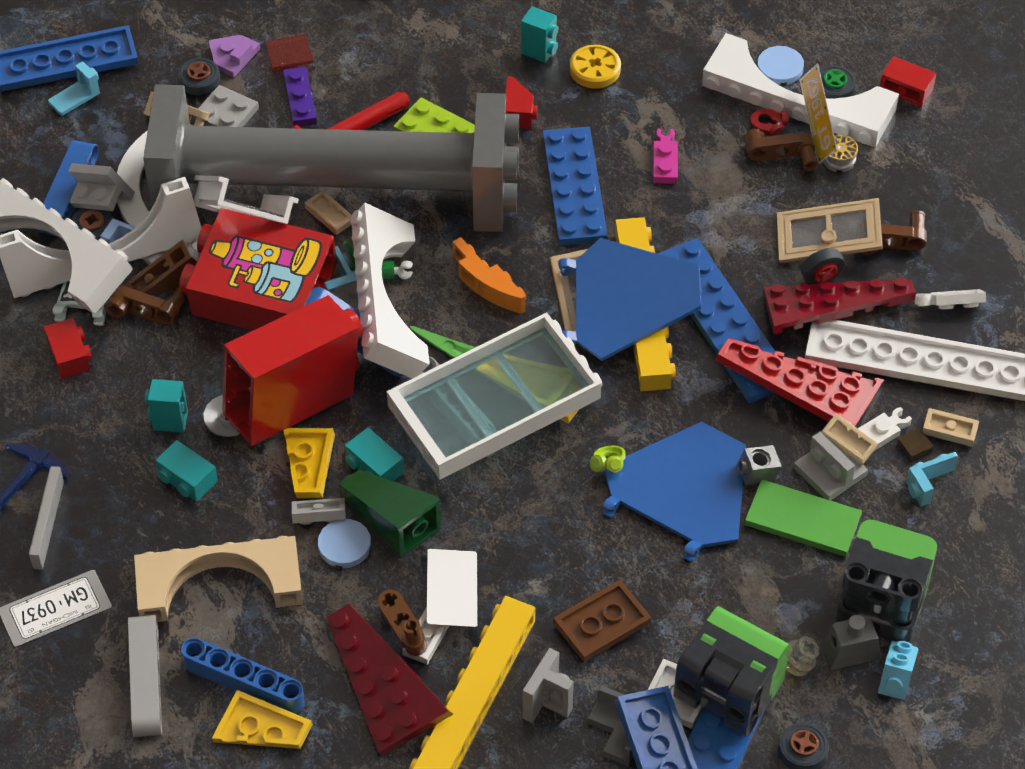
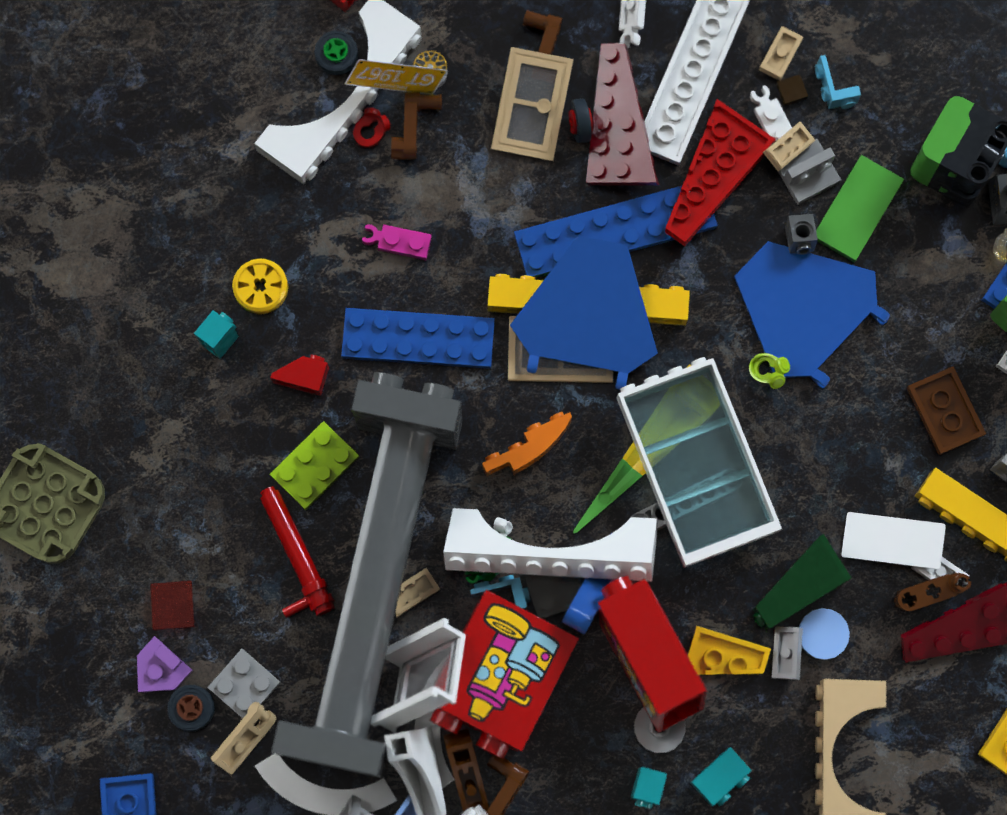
camera: 80 degrees left, 25 degrees up
(237, 665) = (973, 743): blue beam -> none
(300, 96) = (238, 602): dark purple plate -> none
(374, 456) = (735, 591): teal brick -> none
(781, 64) = (295, 99): light blue tile -> none

